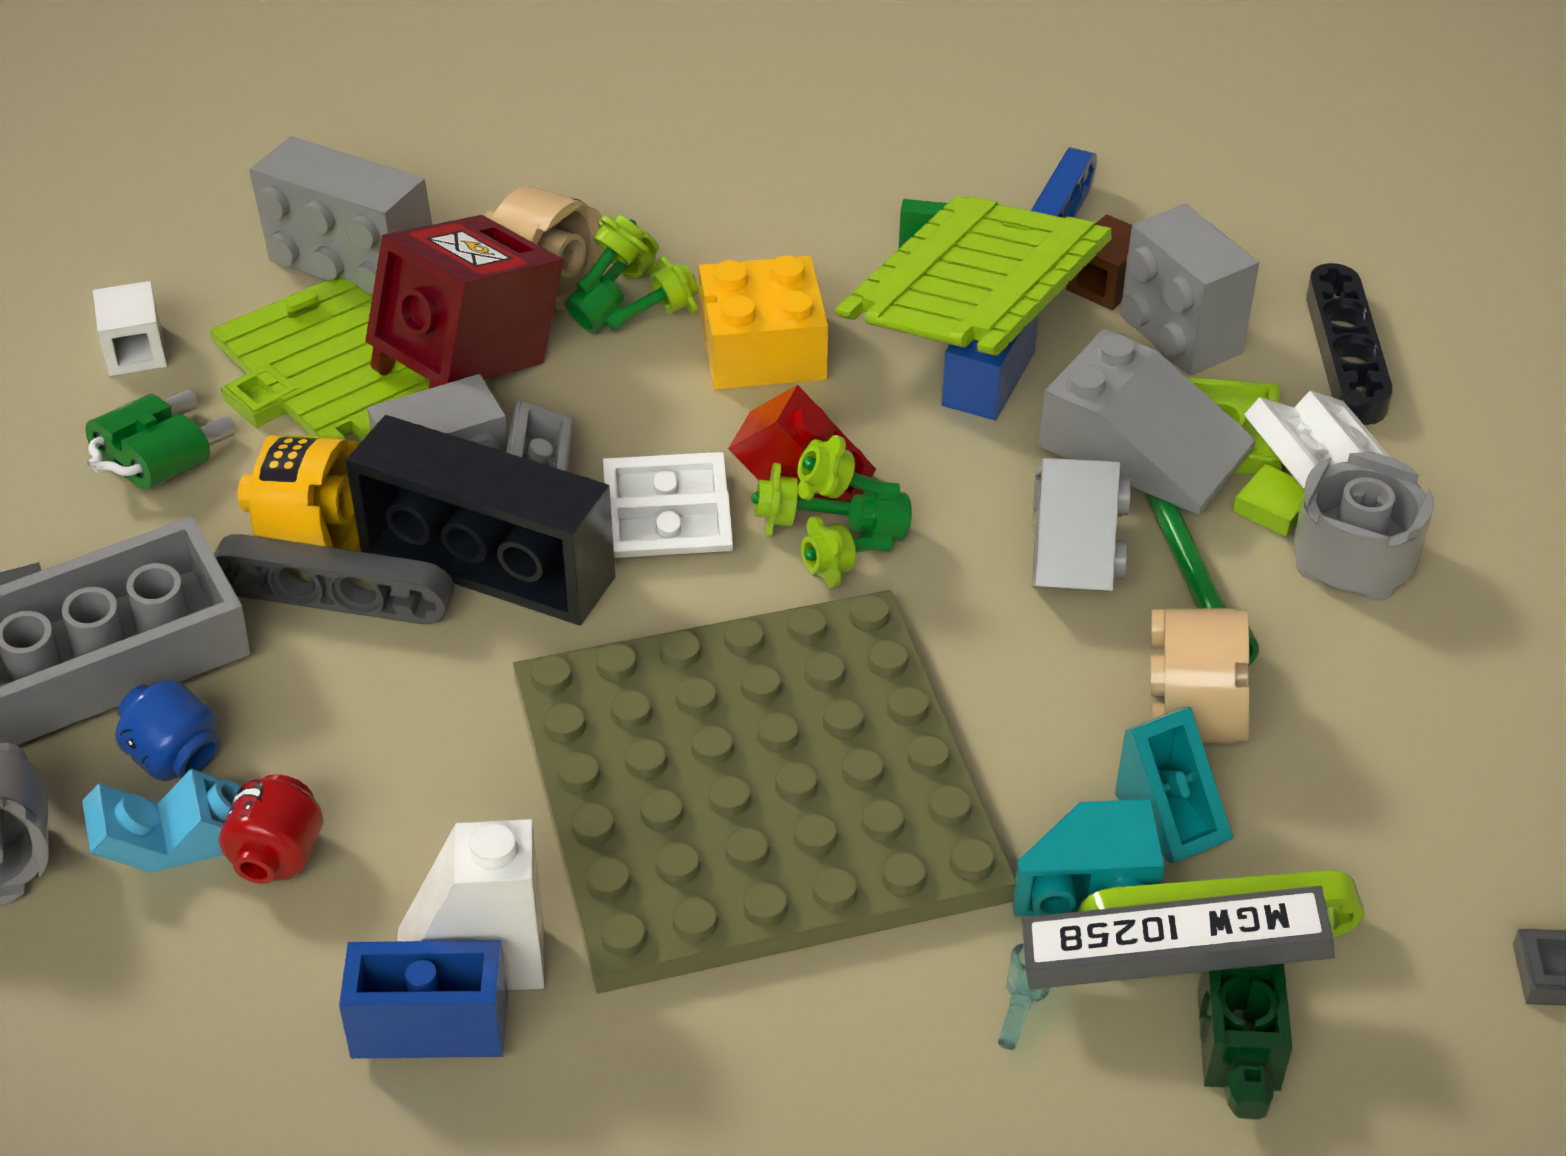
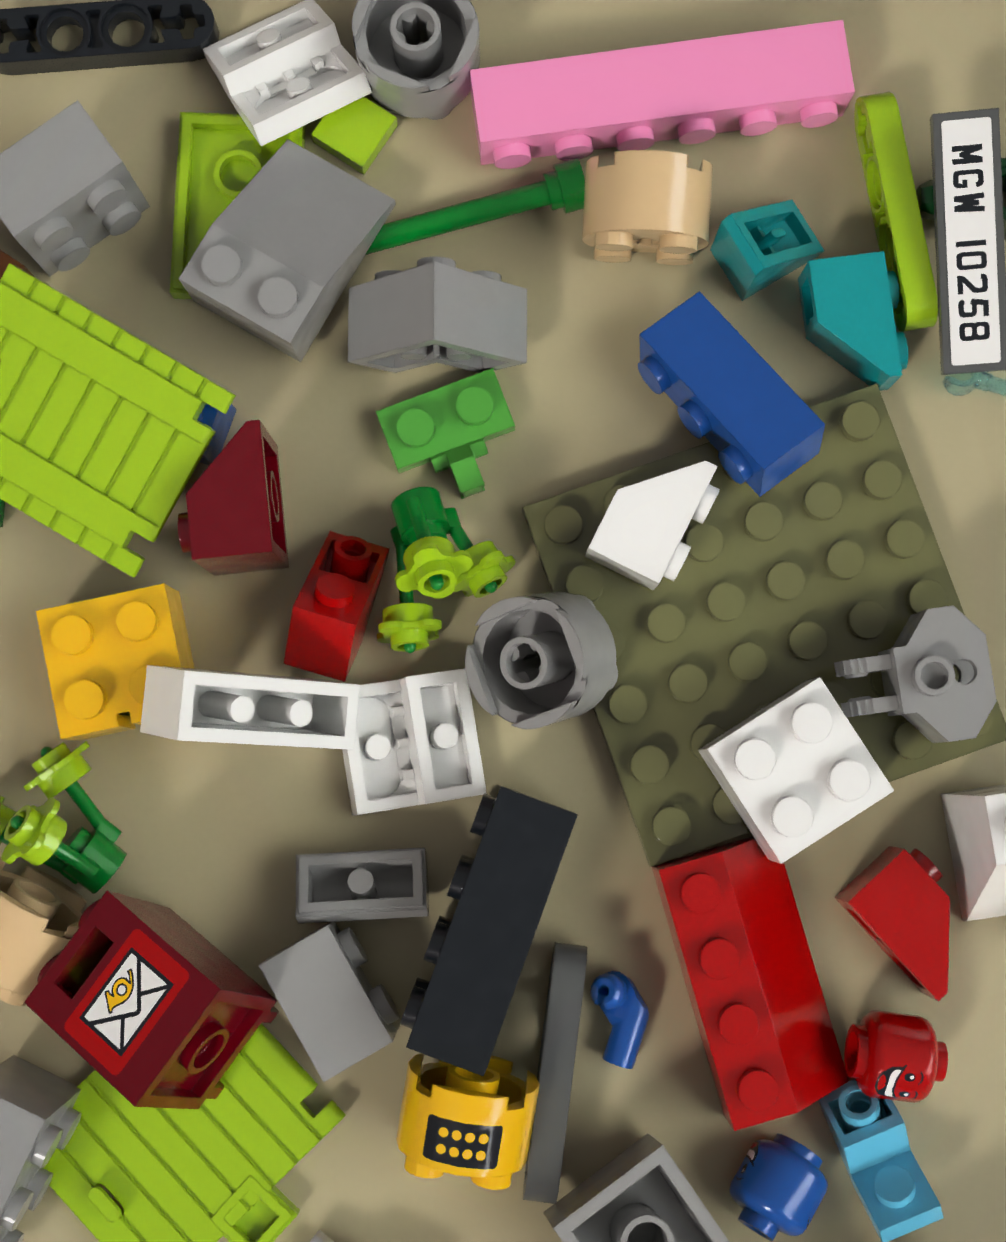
camera: 95 degrees left, 40 degrees up
(370, 643) = (625, 1012): none -> blue arm
(388, 719) = (750, 982): none -> red slope
(393, 854) = (905, 915): none -> red slope
(590, 736) = (795, 770): none -> white brick
(671, 848) = (921, 676): none -> light grey hinge
(708, 359) = (249, 708): none -> white brick
(732, 567) = (541, 659): none -> light grey brick
(859, 647) = (647, 521): none -> white slope
(900, 380) = (238, 508): none -> dark red slope
(972, 545) = (448, 428): none -> bright green hinge
(997, 728) = (729, 395): none -> blue brick
(1340, 724) = (661, 94): none -> bright pink brick

